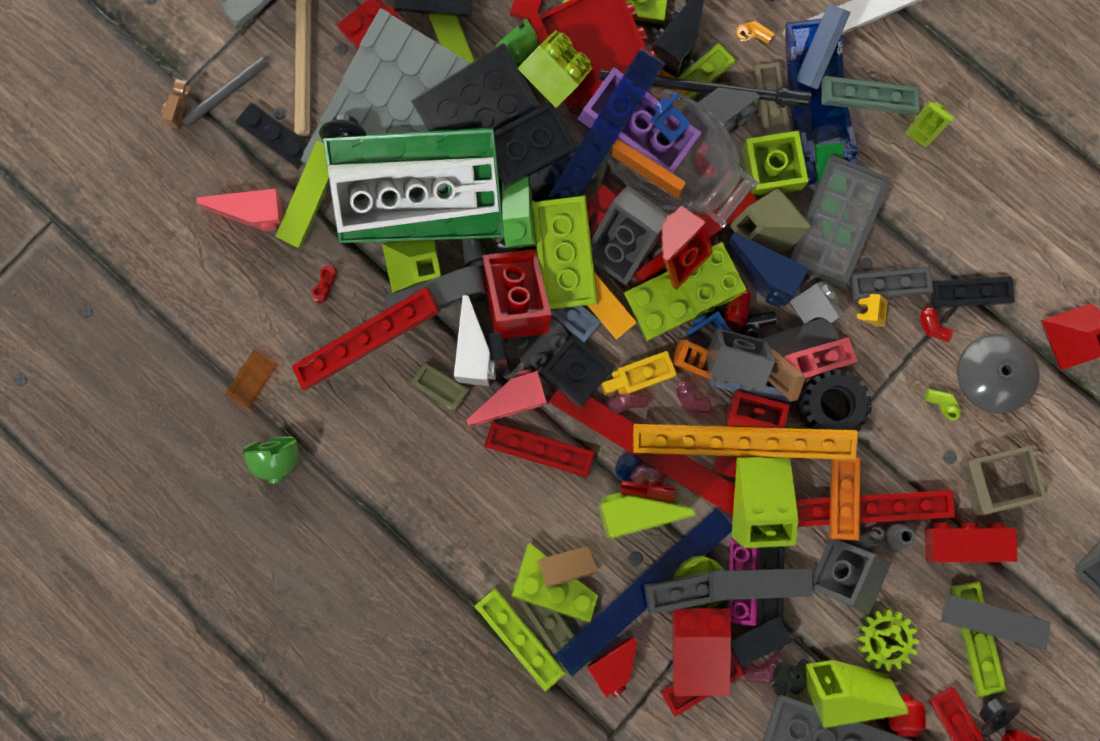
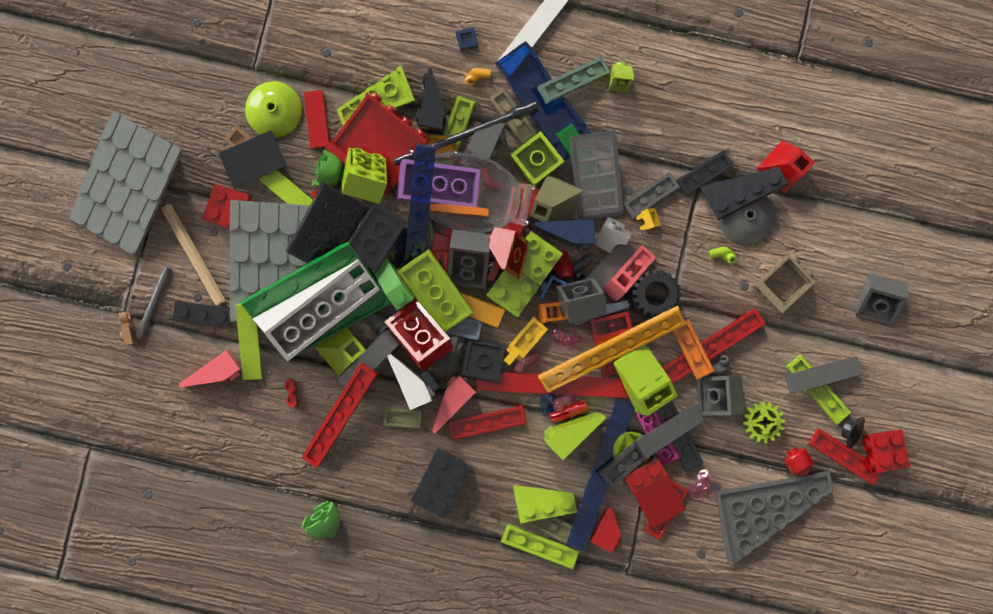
camera: 35 degrees left, 5 degrees up
(251, 379) = (279, 479): clear orange tile -> none
(340, 126) = (247, 289): black piece -> none
(441, 491) = (441, 483): none -> black brick
(567, 566) = (545, 486): medium nougat tile -> none
(665, 109) = (449, 169): blue bracket -> none
(760, 641) = (687, 466): black tile -> none
(785, 673) = (712, 477): black piece -> none
(786, 377) = (615, 295): medium nougat tile -> none
(823, 46) = (526, 66): sand blue tile -> none
(851, 693) = (758, 467): lime slope -> none
(893, 536) = (733, 354): dark grey cone -> none
(931, 326) = (691, 210): red arm -> none
(971, 543) = (784, 334): red brick -> none
(1003, 336) = (737, 193): none -> black wing

